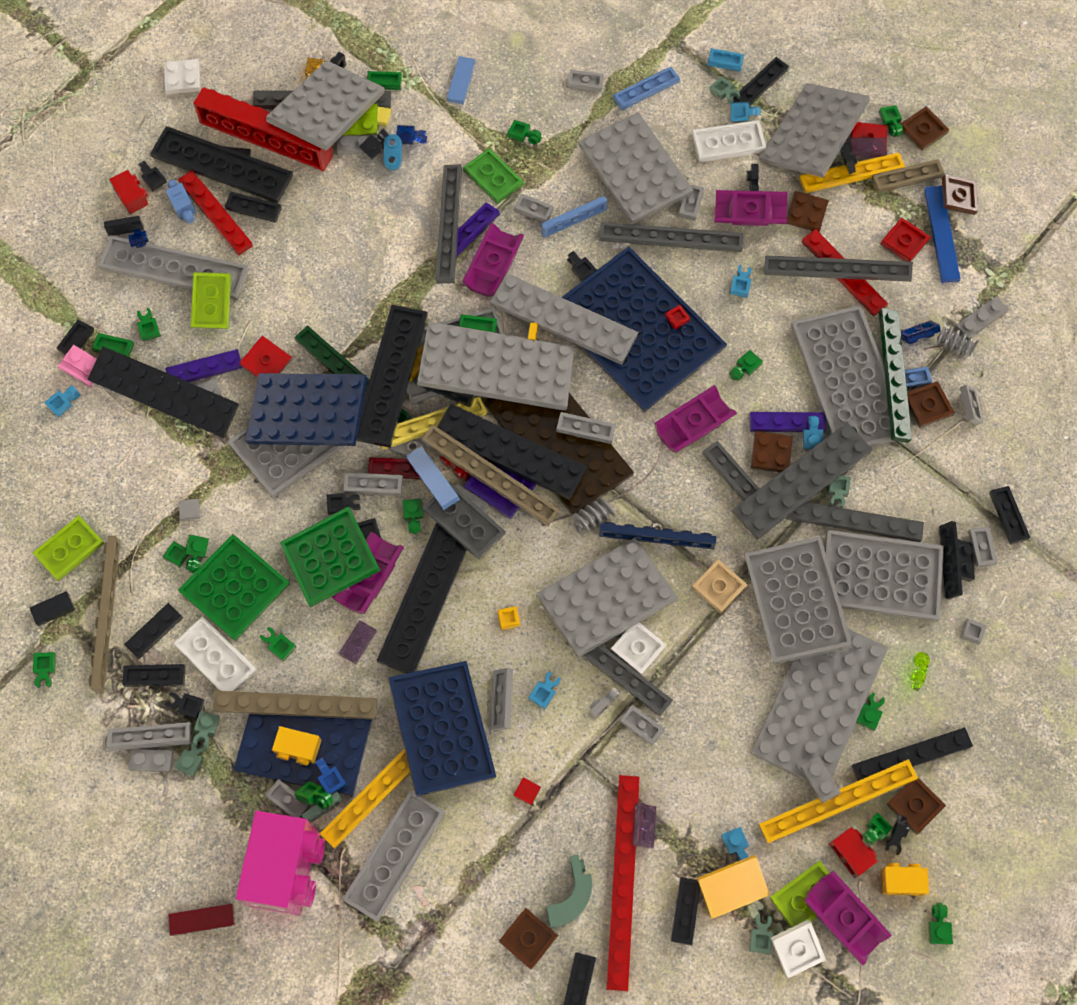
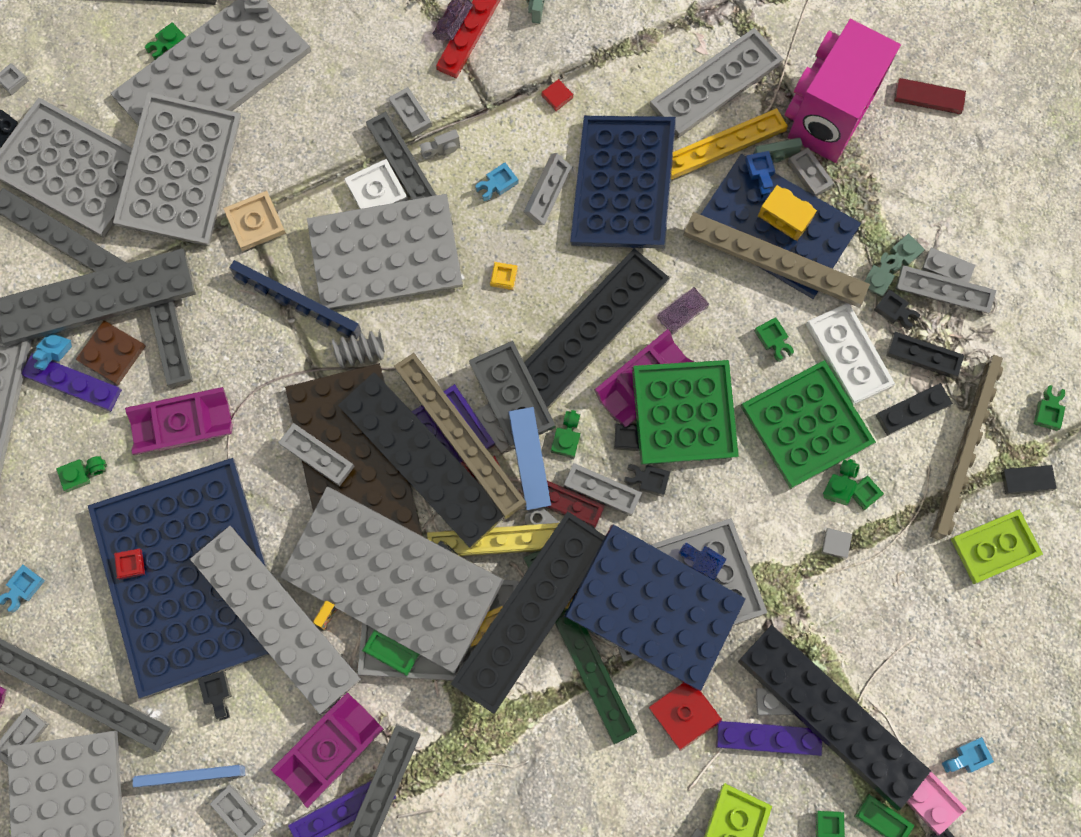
camera: 160 degrees left, 5 degrees up
(281, 454) = (705, 561): none -> clear blue plate
(313, 793) = (786, 161): green plate -> none
(839, 489) = (62, 273): sand green plate -> none
(918, 675) = (93, 52): clear neon green plate -> none

